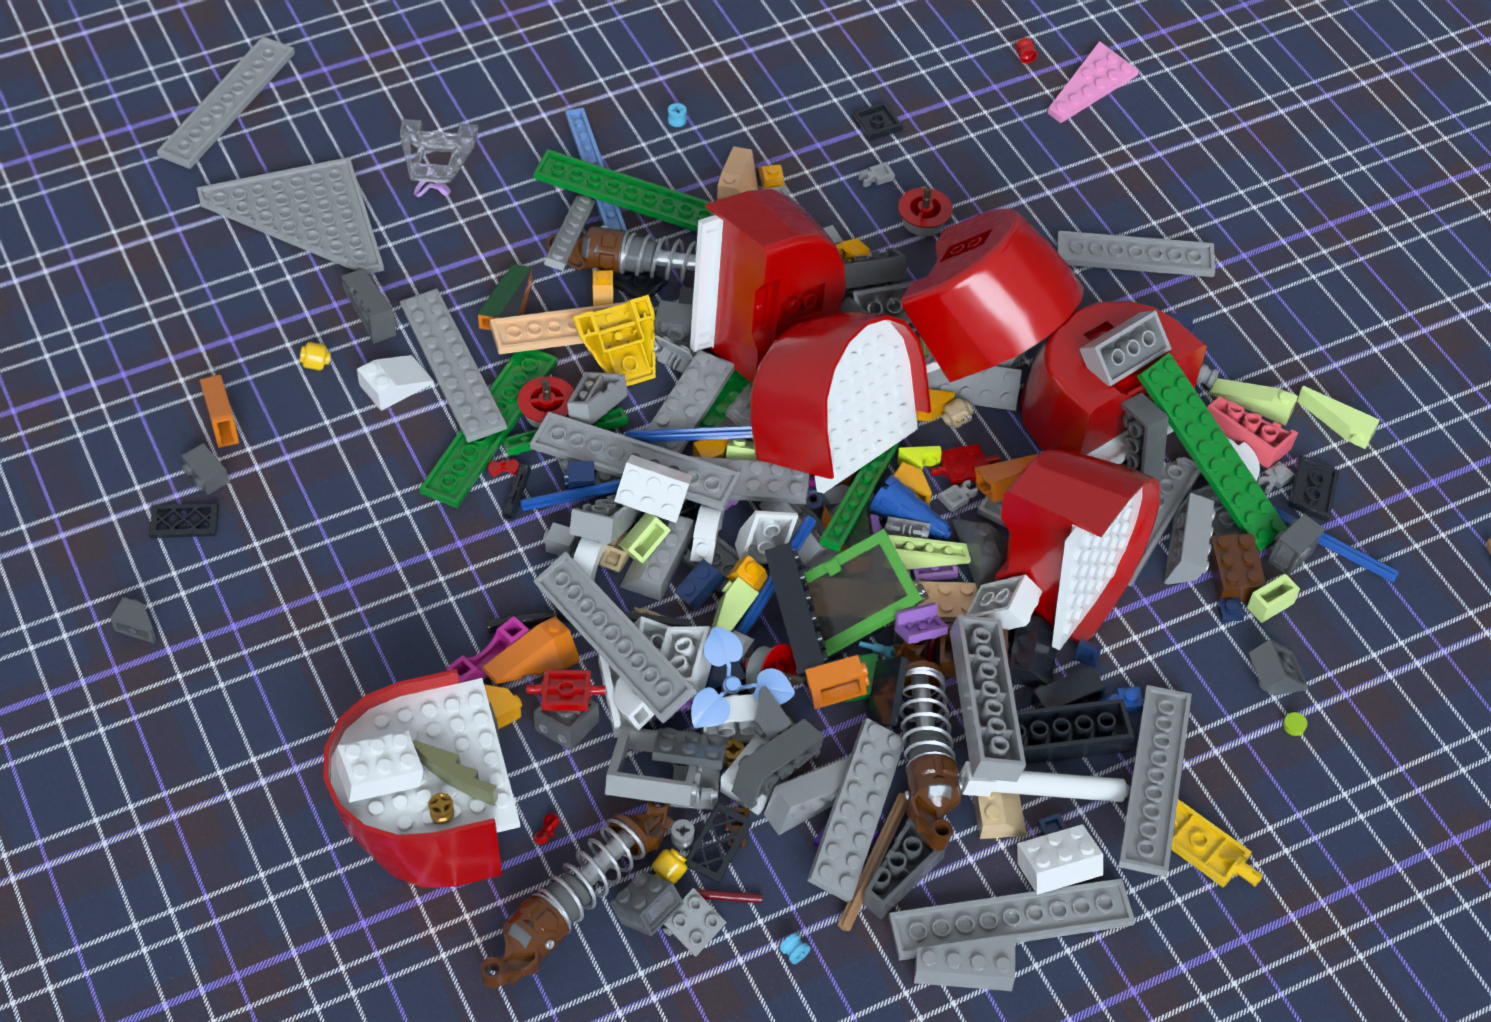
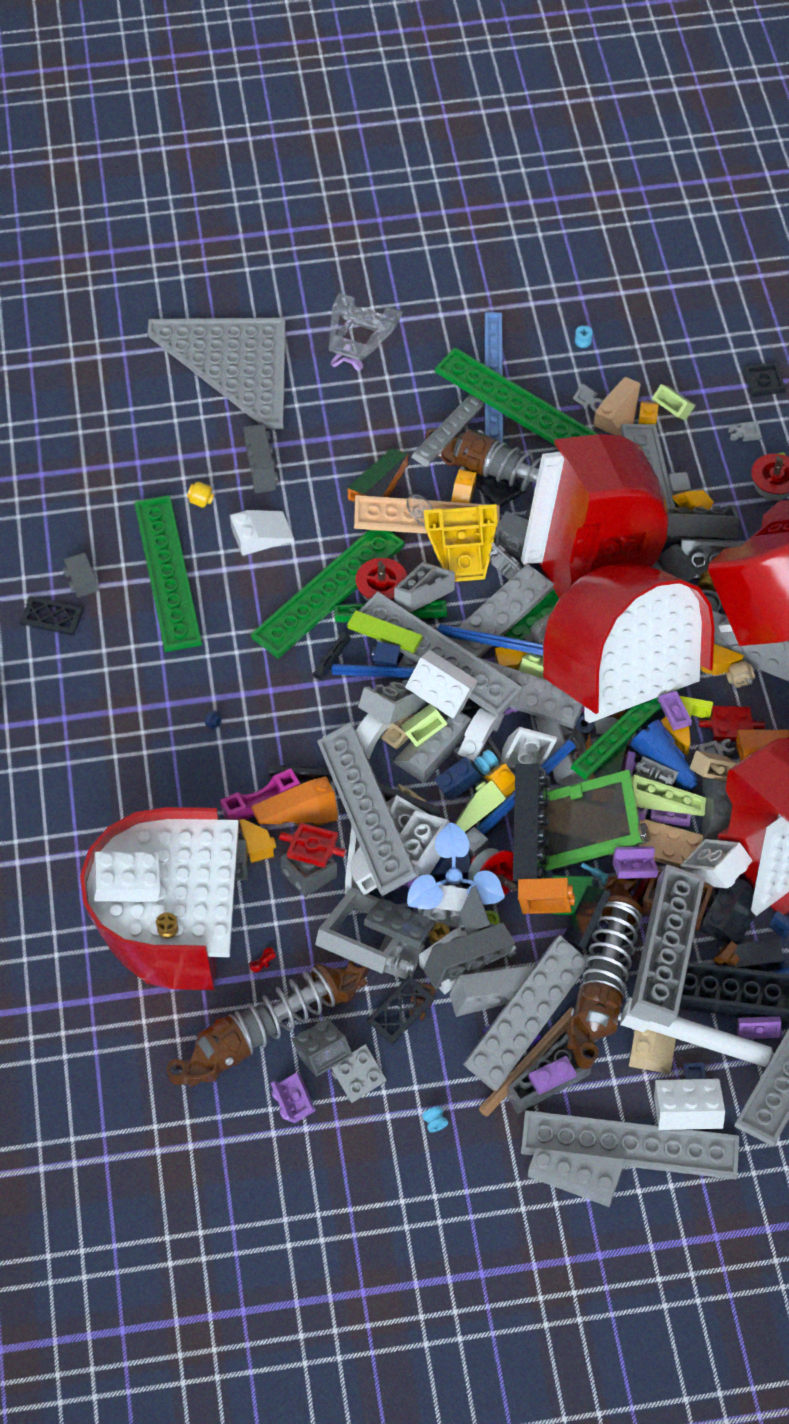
camera: 20 degrees right, 5 degrees up
(219, 411) = (107, 526): orange slope -> none
(225, 102) = (197, 244): light grey plate -> none
(304, 447) = (167, 574): none -> green plate
(406, 588) = (213, 720): none -> dark blue plate
(448, 768) = (184, 893): olive slope -> none
(453, 366) = (313, 529): light grey plate -> none
(496, 468) = (322, 630): red piece -> none
(559, 540) = (350, 709): light grey brick -> none
(564, 318) = (416, 505): none -> clear dish
(570, 450) = (385, 631): none -> lime tile
(631, 967) = (293, 1098): none -> medium lavender bracket
(670, 865) = (353, 1020): yellow head -> none
(682, 840) = (376, 998): light grey wheel -> none
(702, 173) = (586, 397): none -> light grey plate
(724, 560) = (486, 762): none -> medium azure wheel
(730, 896) = (395, 1058): dark red bar -> none
(794, 159) = (673, 402): none -> yellowish green piece
(905, 462) = (674, 710): none -> medium lavender plate
(909, 865) = (552, 1075): none -> medium lavender plate
(965, 509) = (711, 765): none -> tan brick
(1047, 695) = (726, 955): none -> reddish brown tile
(1103, 762) = (759, 1027): none -> medium lavender plate

